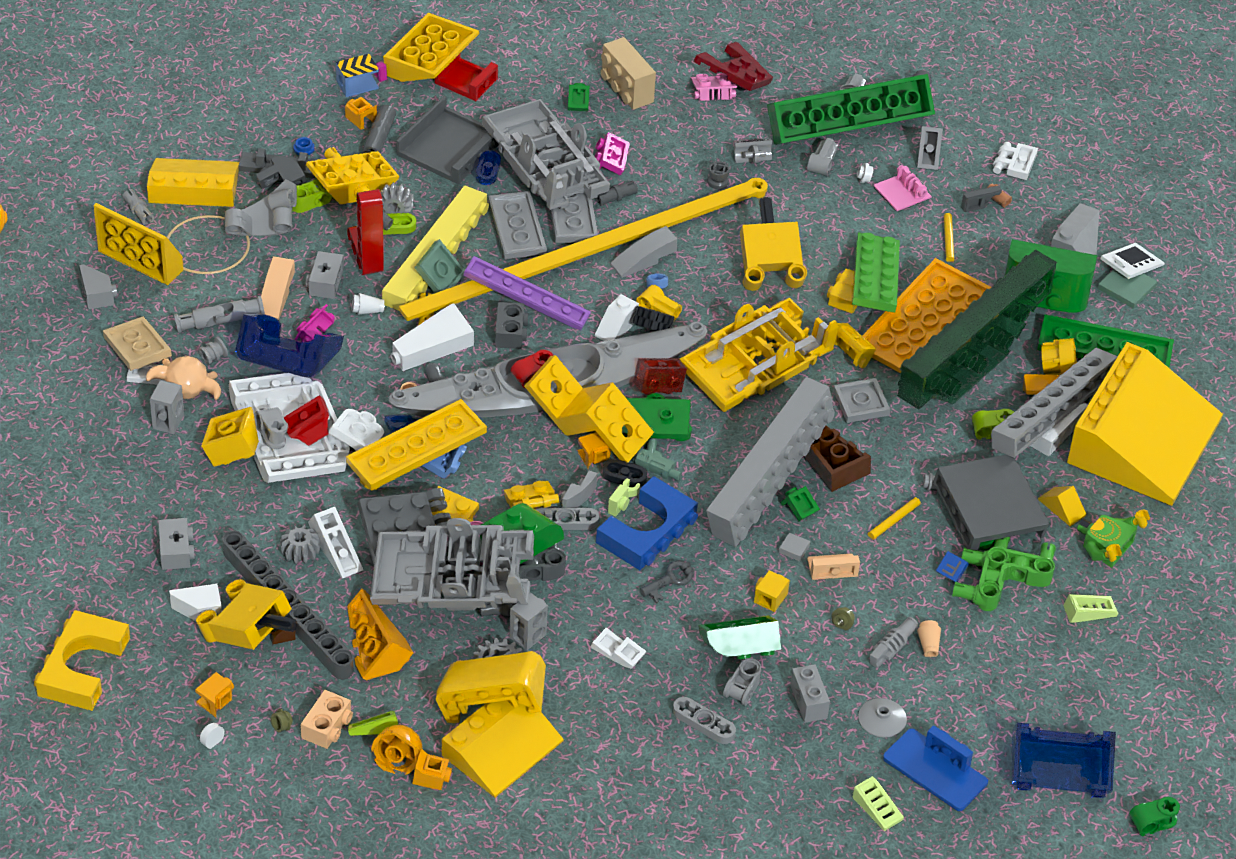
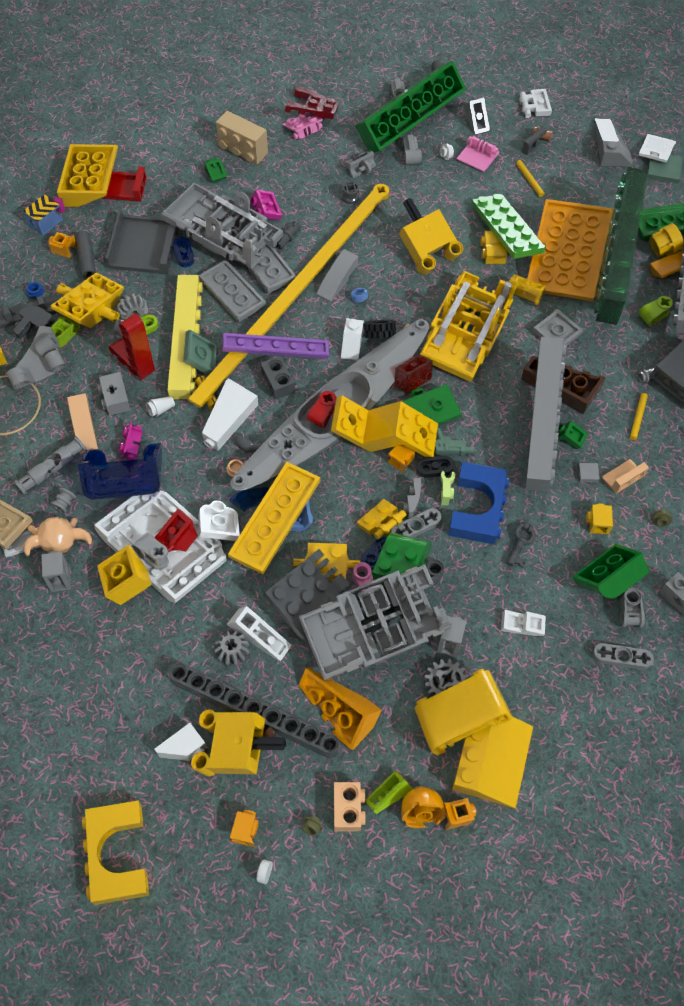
camera: 25 degrees left, 15 degrees up
(175, 543) = (135, 707): light grey brick -> none
(654, 299) = (367, 311): yellow piece -> none
(1071, 277) = (605, 176): green brick -> none

